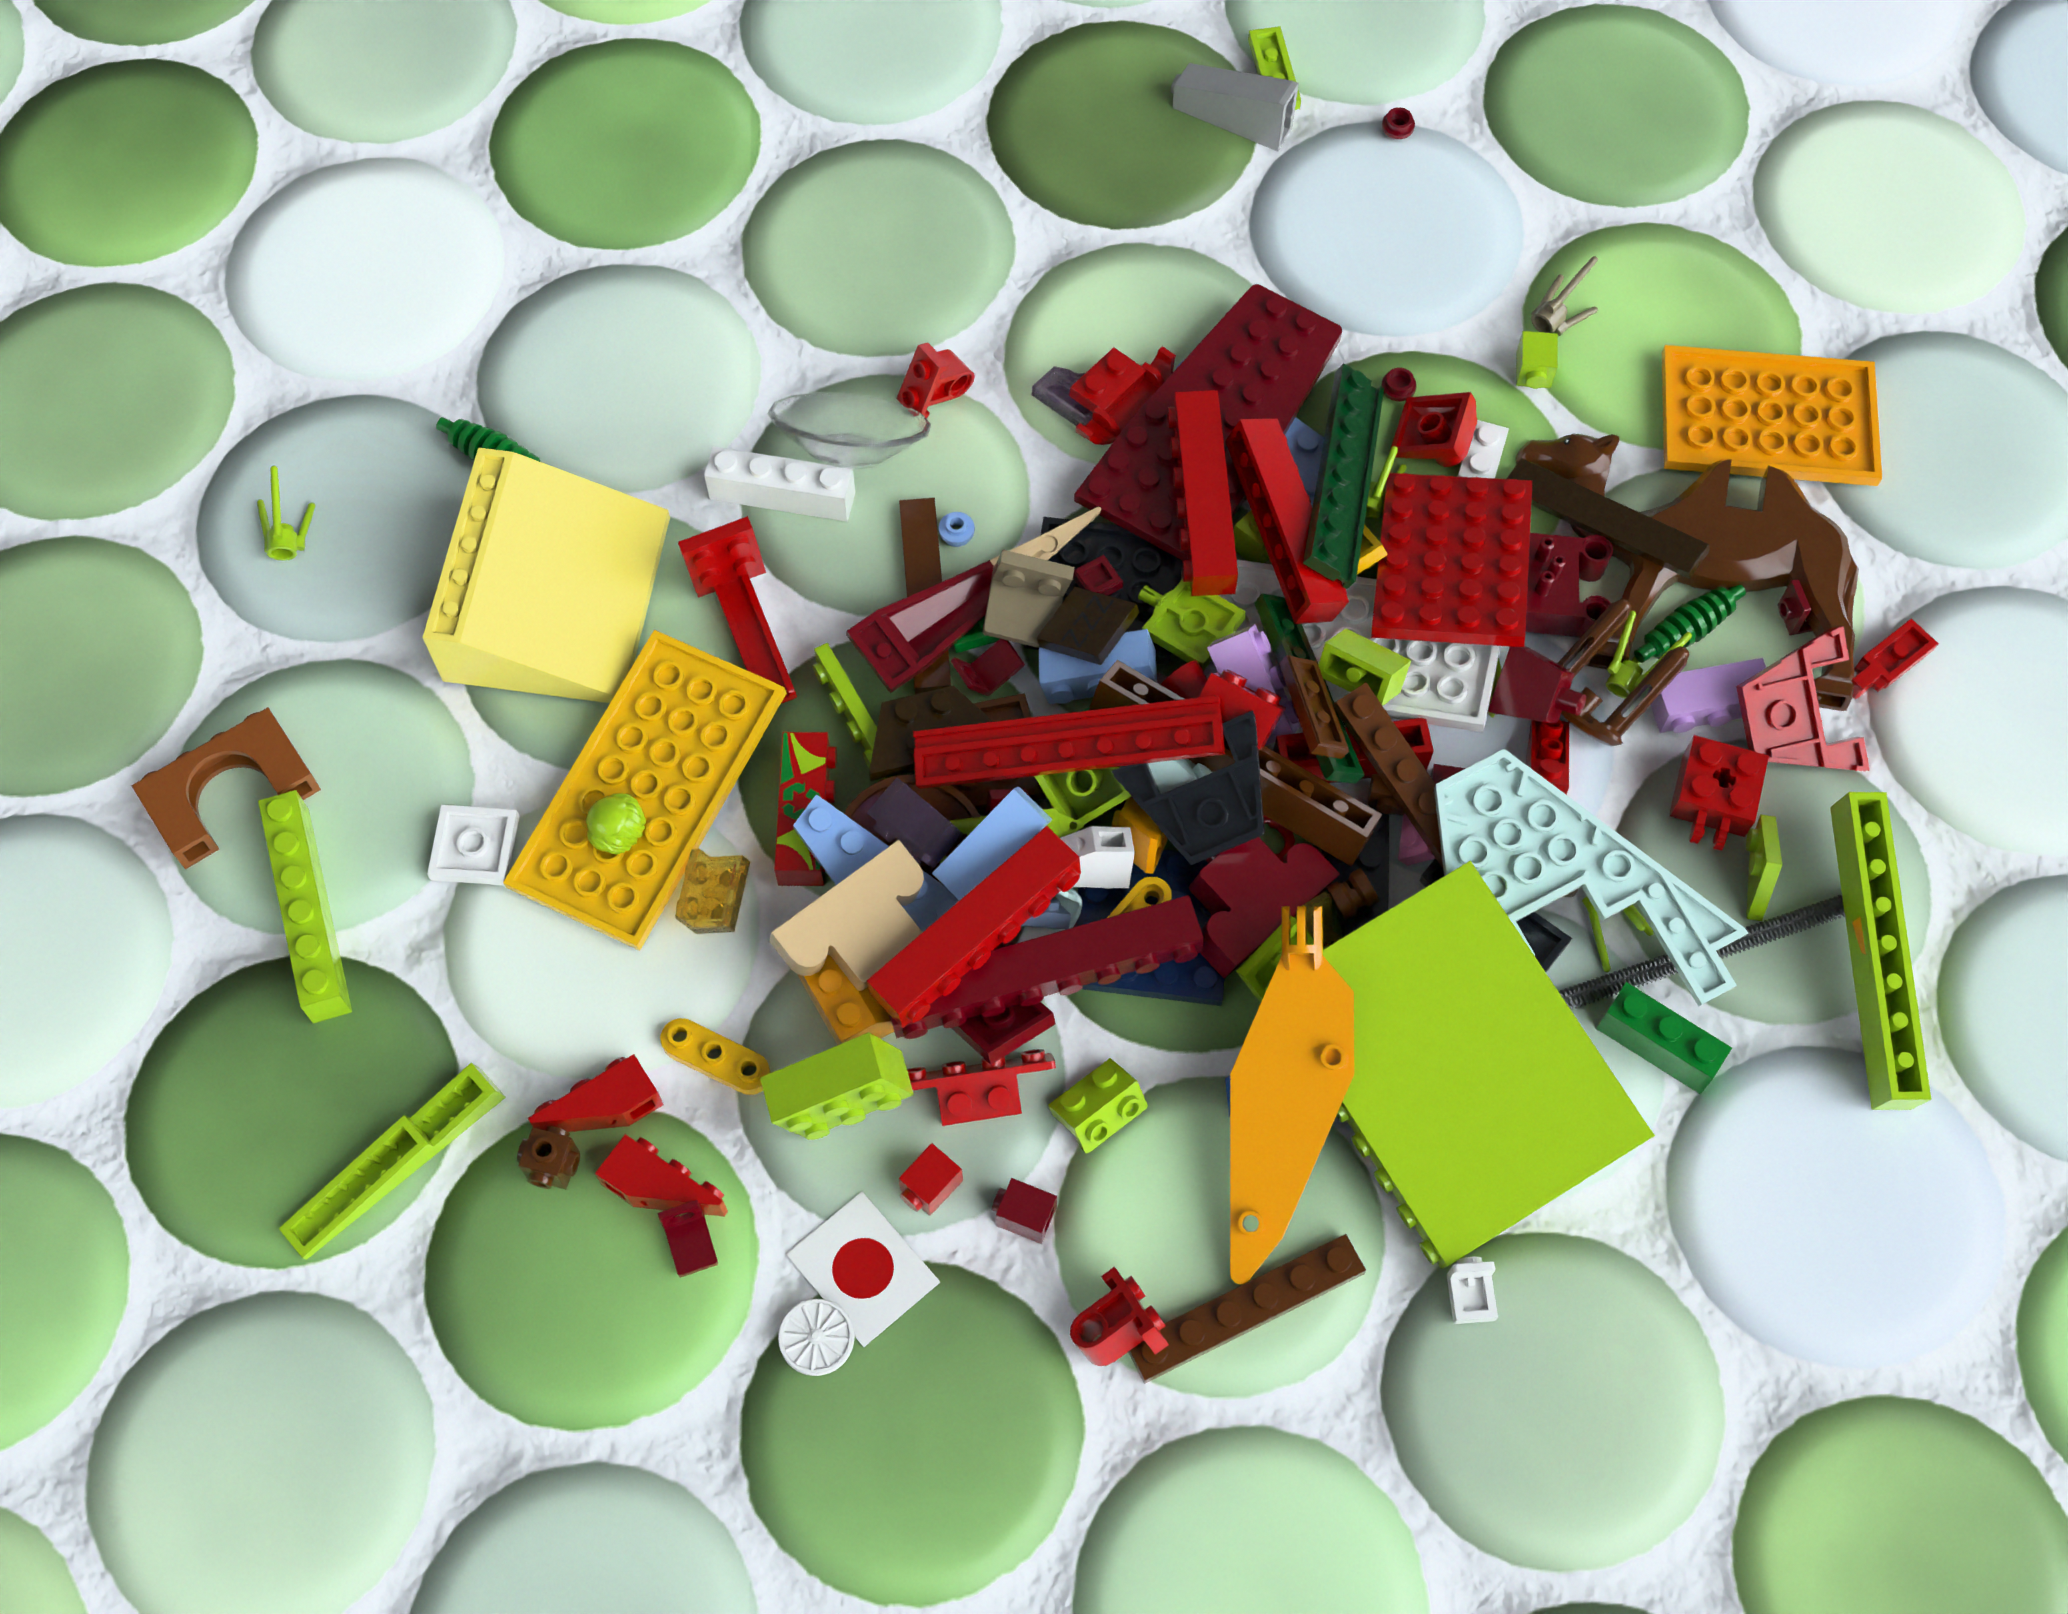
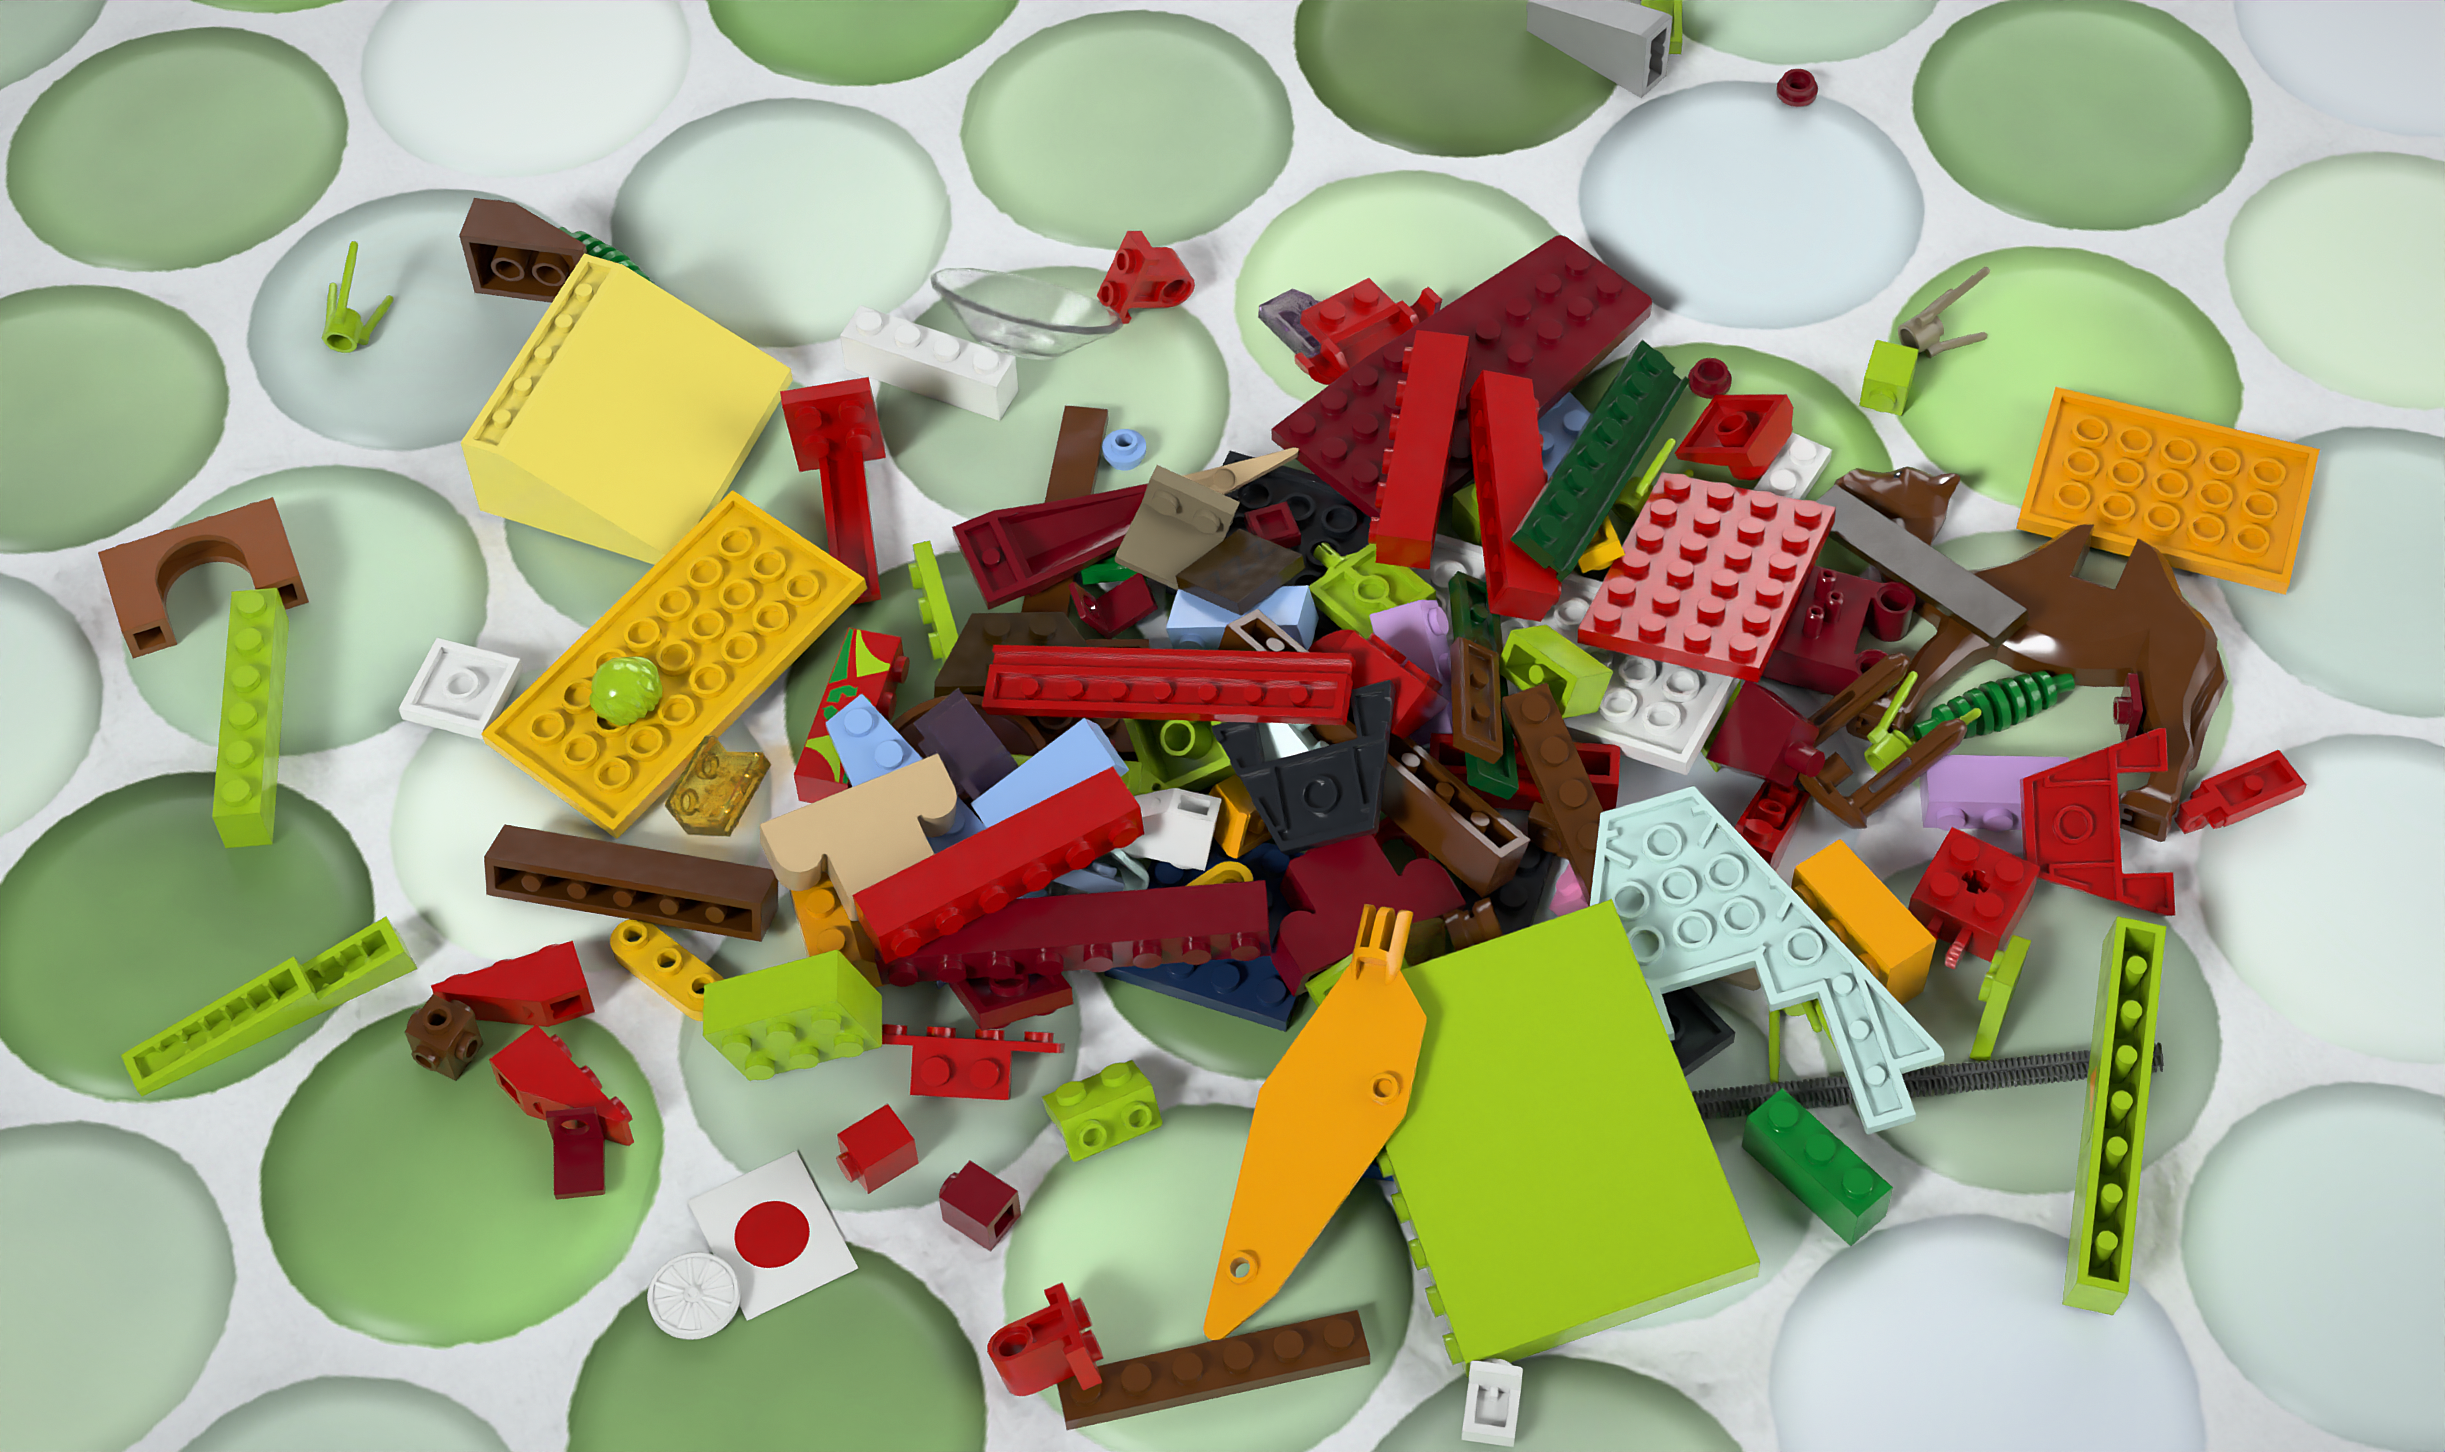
camera: 15 degrees right, 10 degrees down
(416, 450) = (516, 252): none -> reddish brown slope
(665, 990) = (631, 882): none -> reddish brown brick
(1652, 824) = (1866, 919): none -> light orange brick

